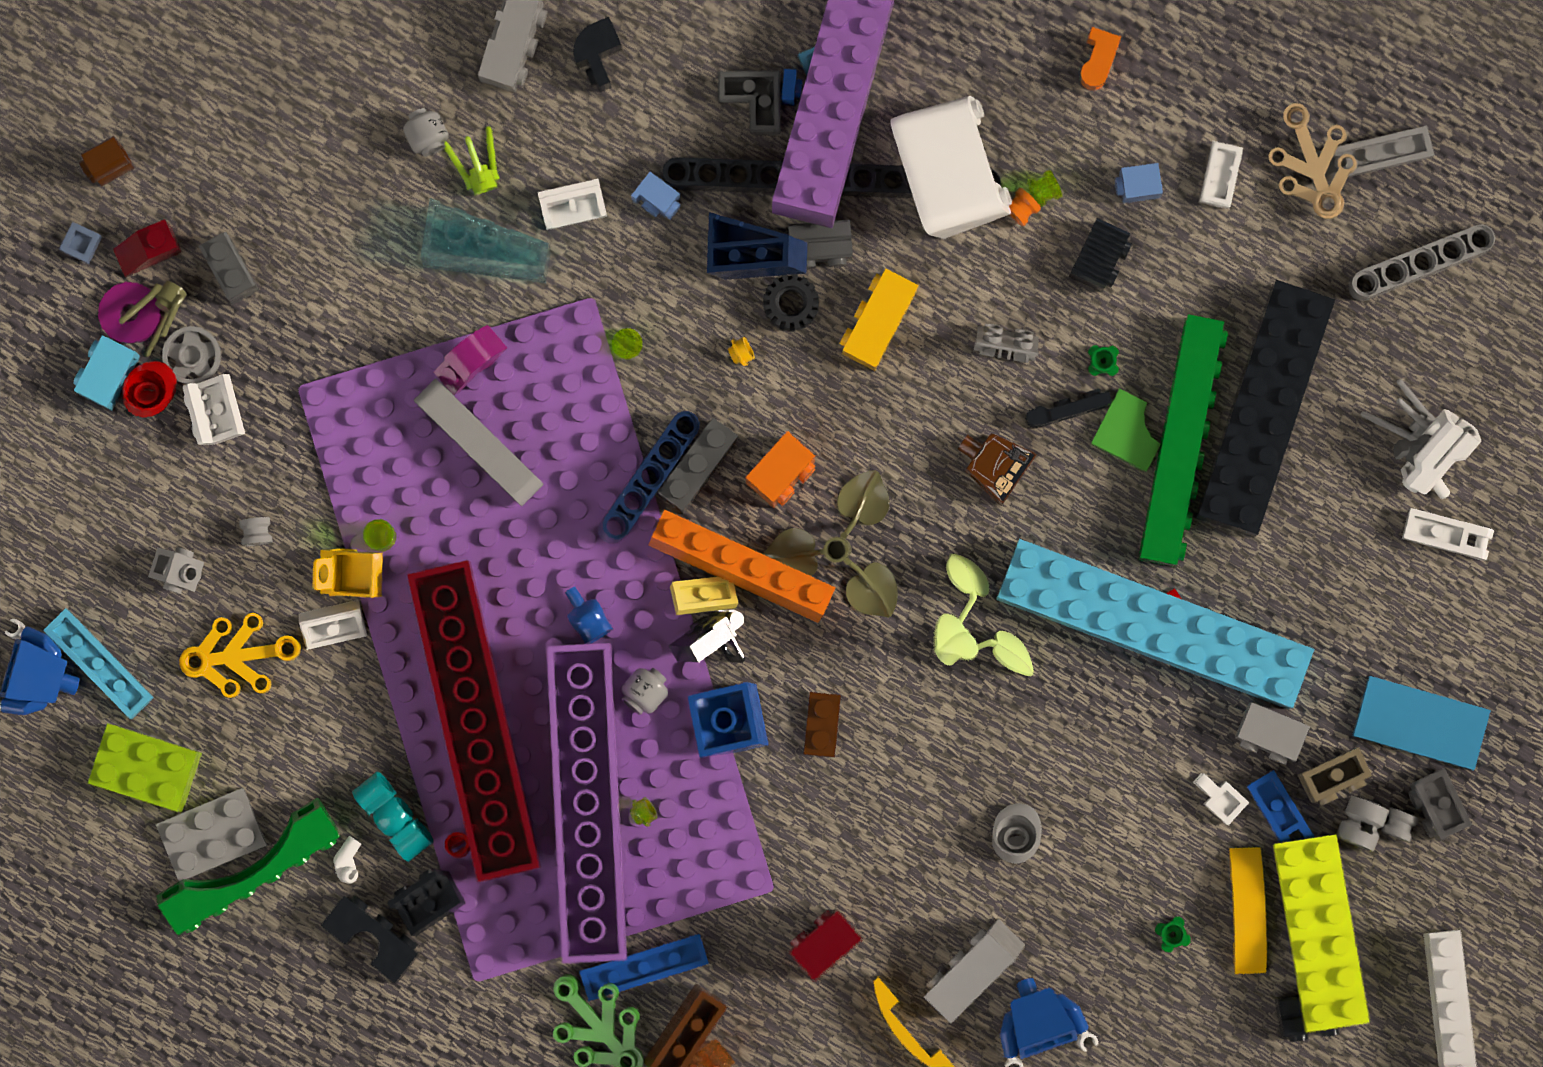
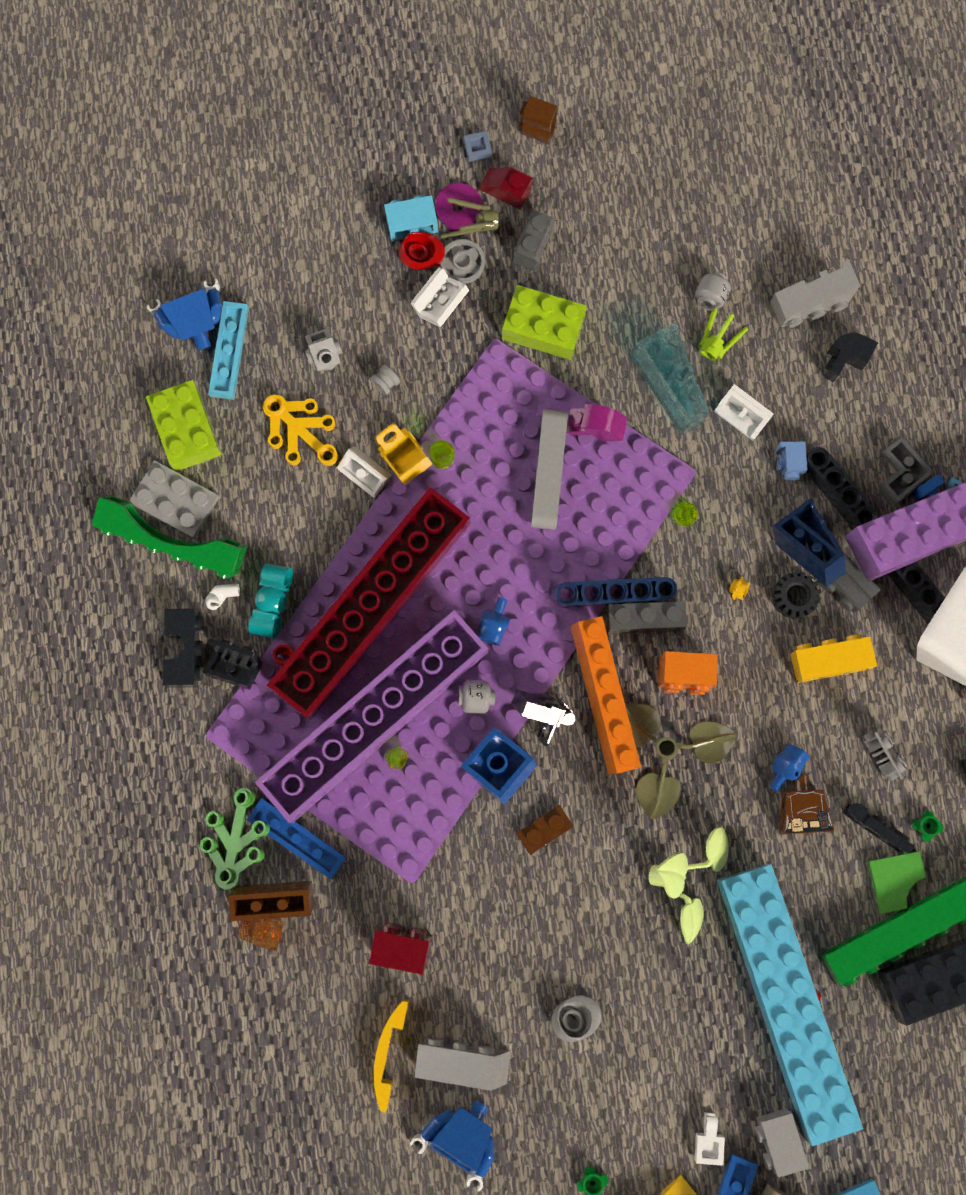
camera: 50 degrees right, 5 degrees down
(323, 326) = (543, 322): none -> lime brick
(703, 595) = (566, 686): light yellow plate -> none
(944, 446) = (788, 766): none -> blue piece

